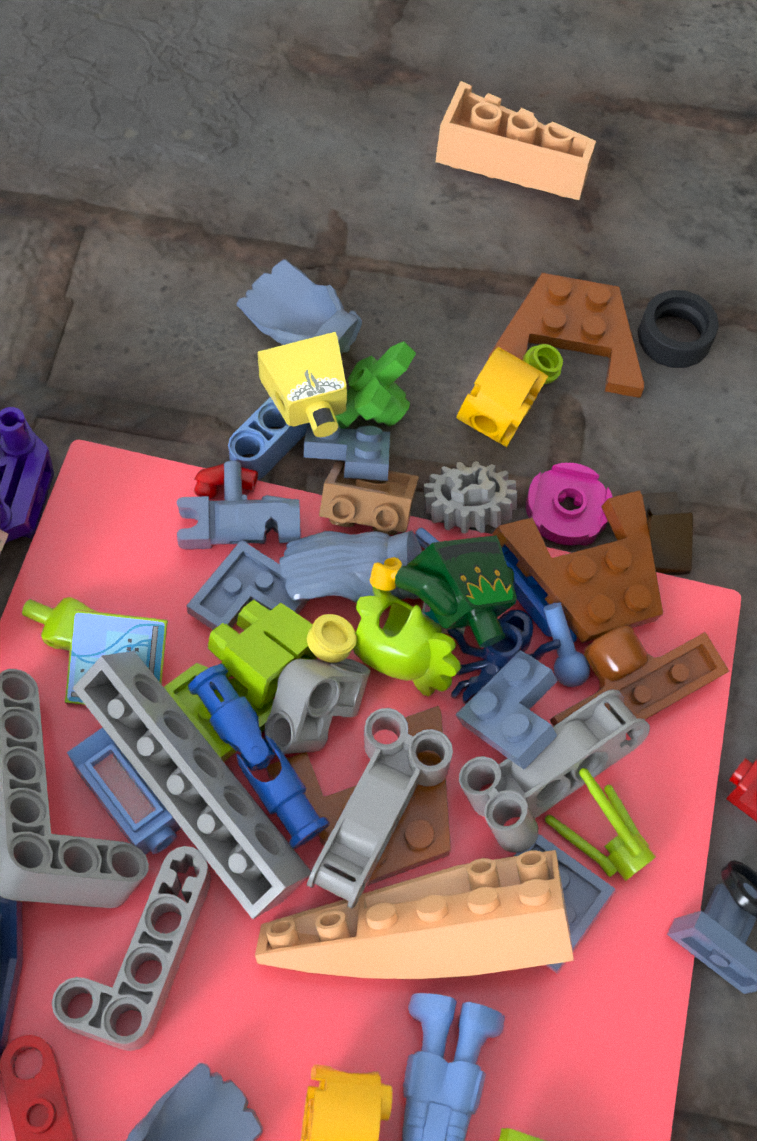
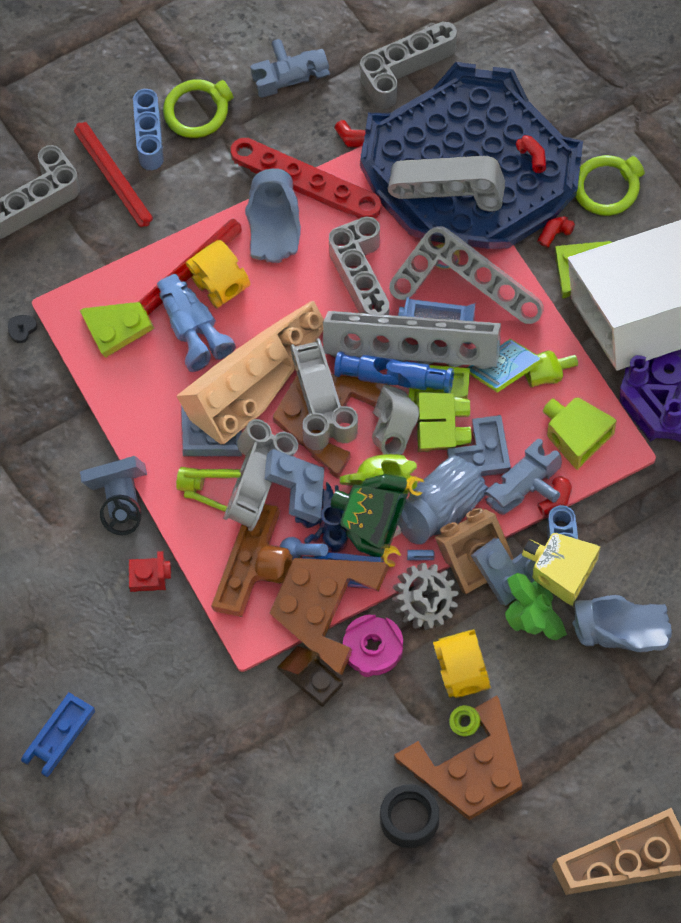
camera: 145 degrees right, 0 degrees up
(123, 519) = (578, 429): none -> lime torso
(331, 638) = (412, 444): light yellow tile -> none

